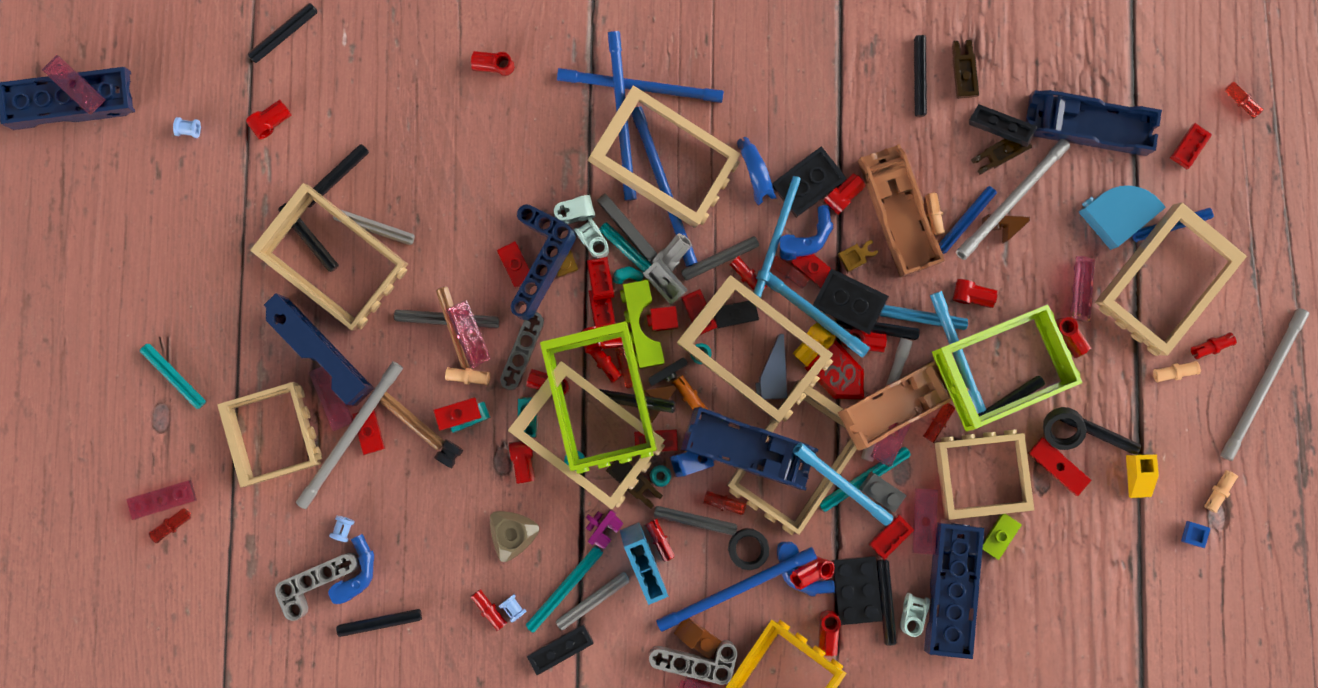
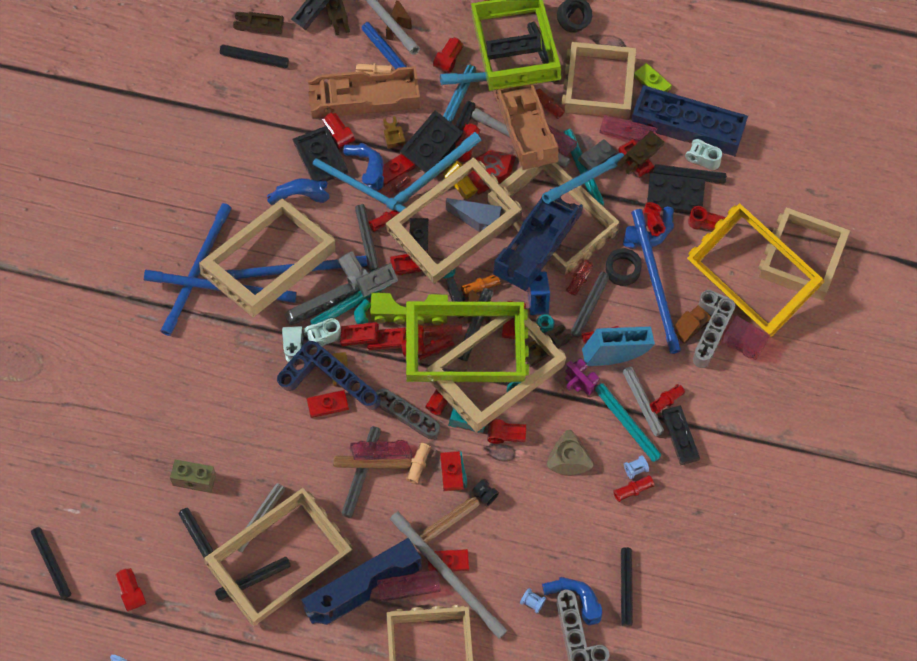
camera: 70 degrees left, 20 degrees down
(400, 147) = (193, 476): none -> olive brick
(490, 62) = (138, 384): red piece -> none
(598, 627) = (667, 398): none -> red pin
(663, 319) = (408, 289): red brick -> none
(897, 543) = (641, 152): none -> dark brown hinge
(994, 368) = (514, 46): none -> black plate
(1068, 474) = (605, 26): red tile -> none

